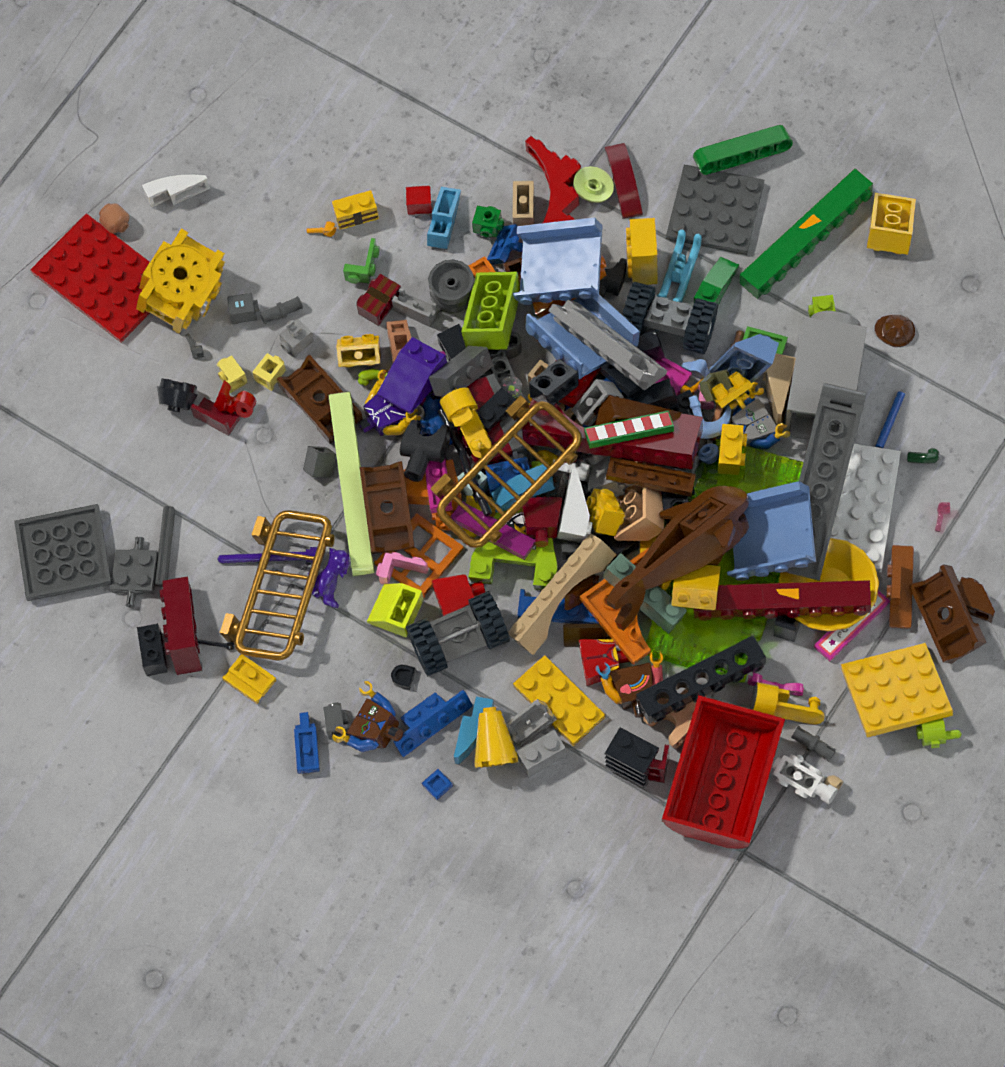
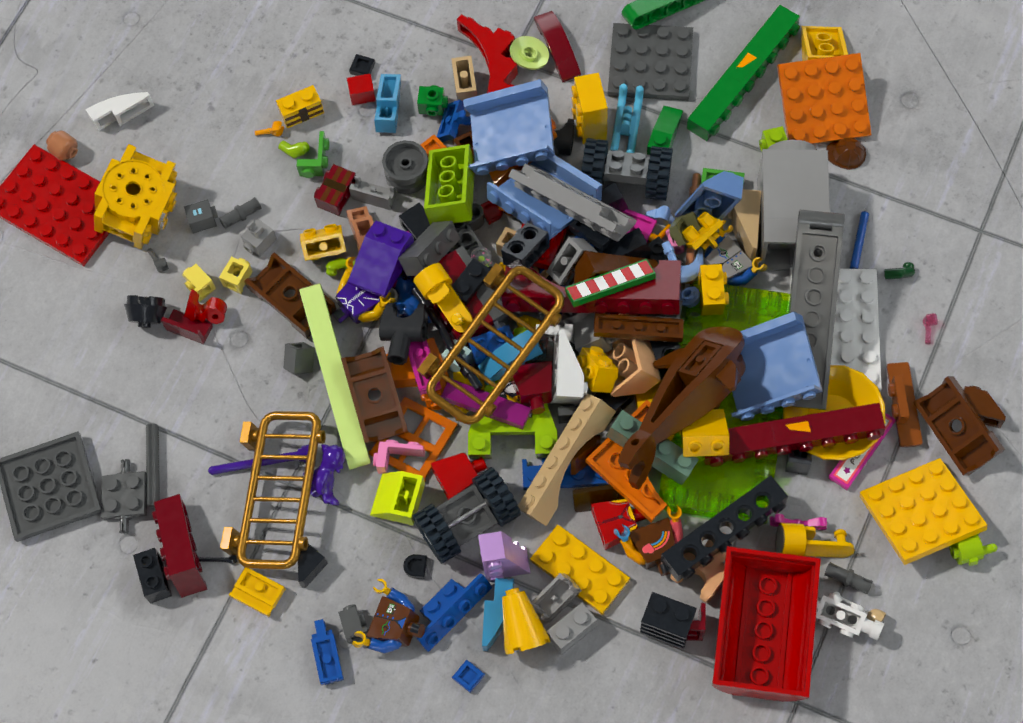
camera: 10 degrees left, 0 degrees up
(302, 661) = (309, 565): none -> black slope
(345, 253) = (295, 150): none -> lime arm
(423, 175) = (362, 65): none -> black tile
(485, 677) = (502, 556): none -> lavender wedge
(529, 343) = (491, 212): none -> red tile
(880, 273) = (824, 99): none -> orange plate

